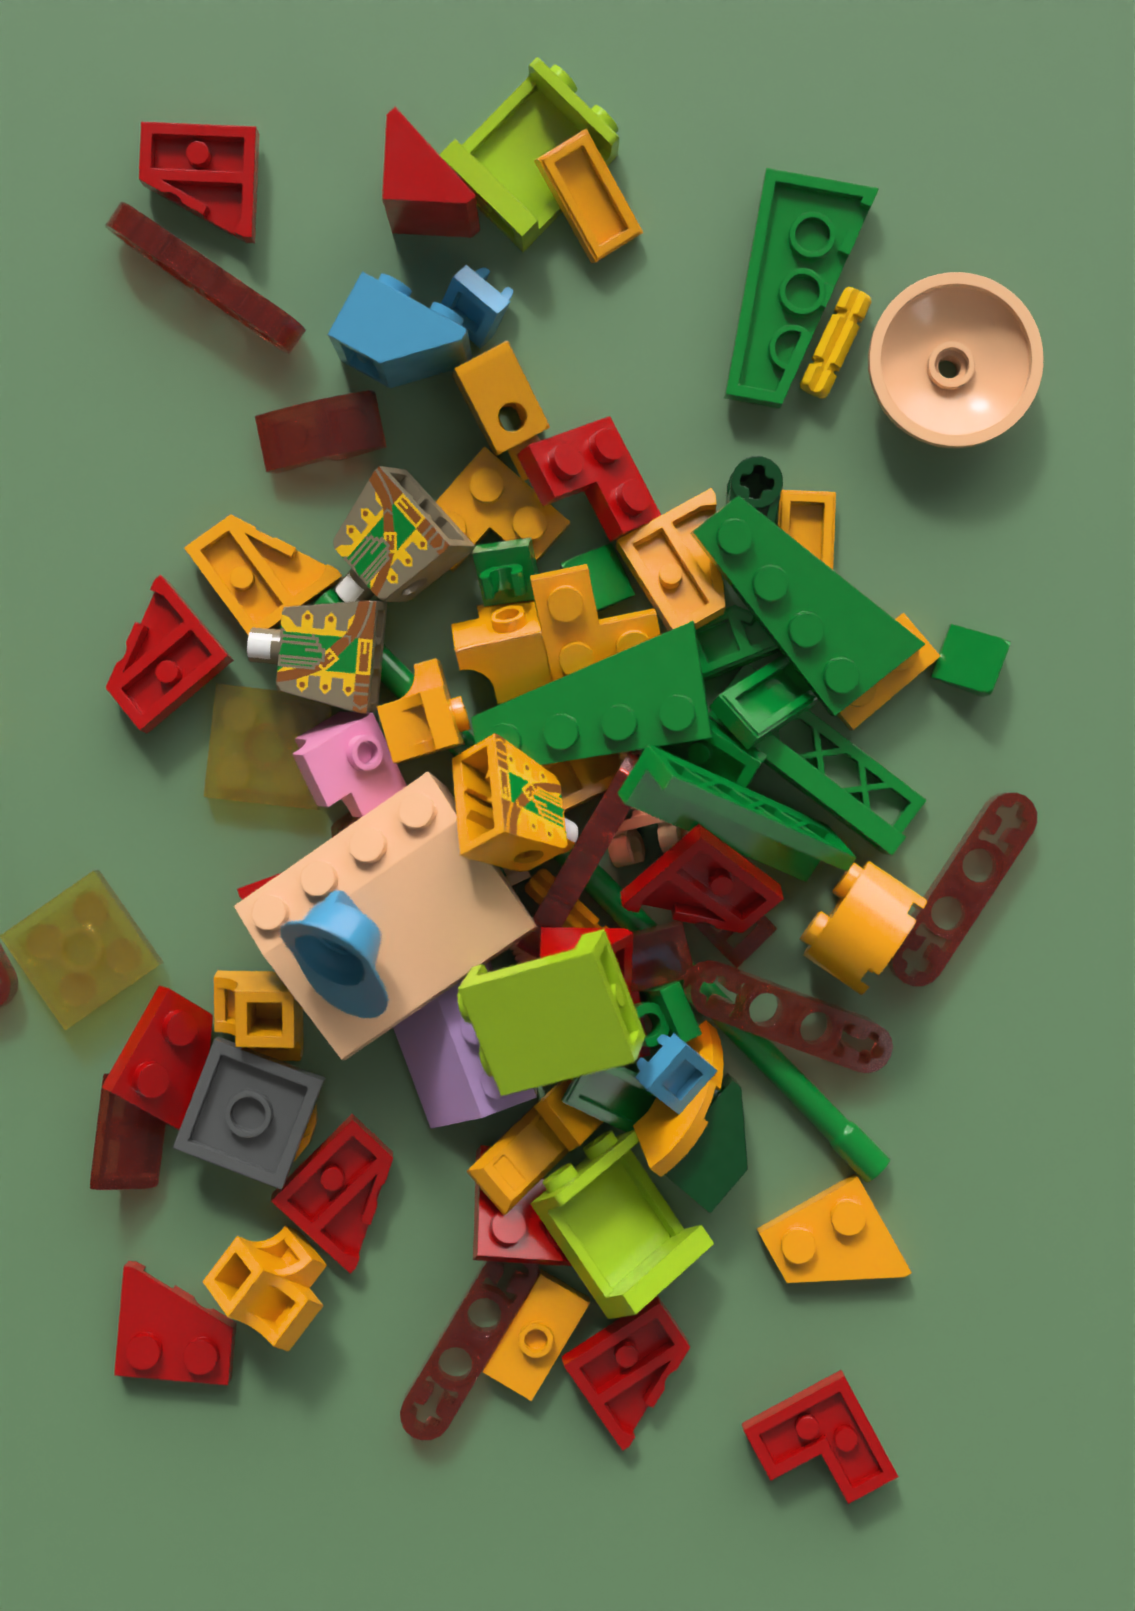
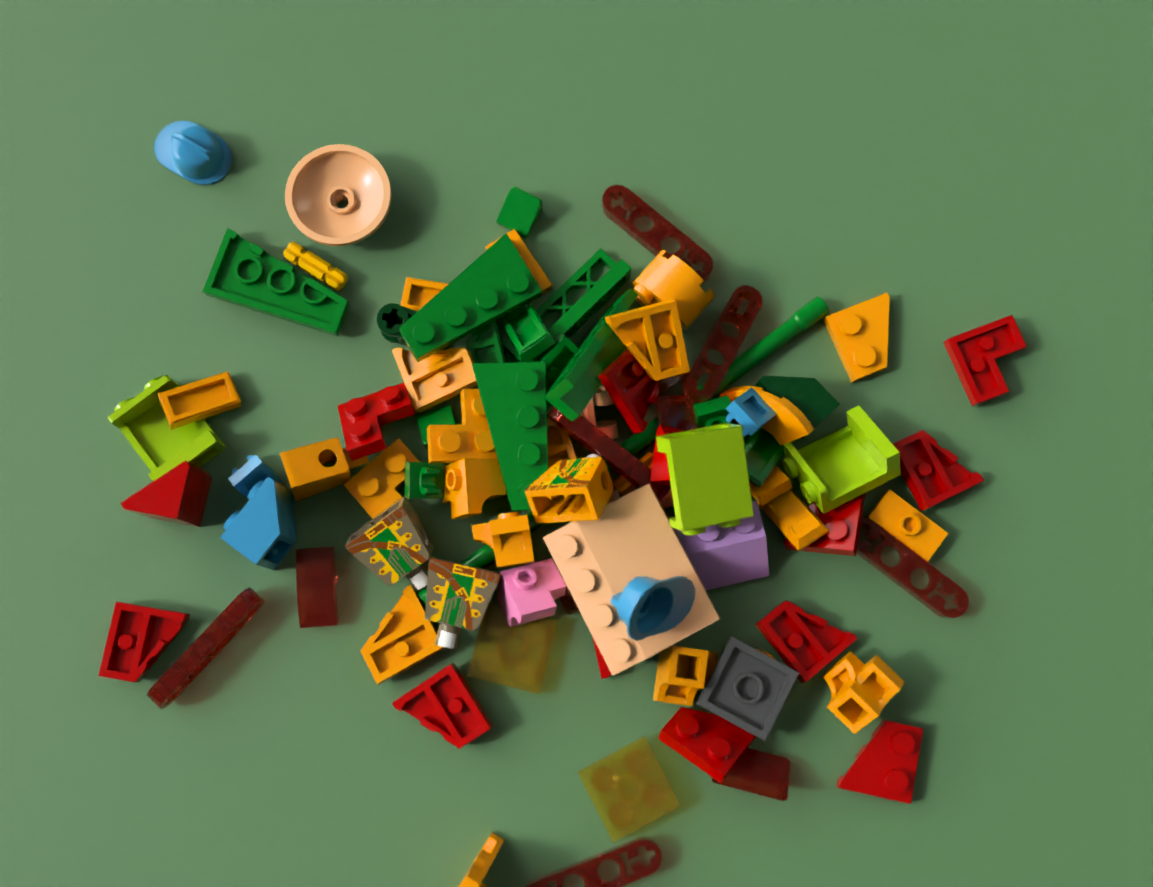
camera: 80 degrees left, 10 degrees down
(772, 905) = (653, 338): none -> light orange wing
(1005, 107) = (193, 152): none -> dark azure piece

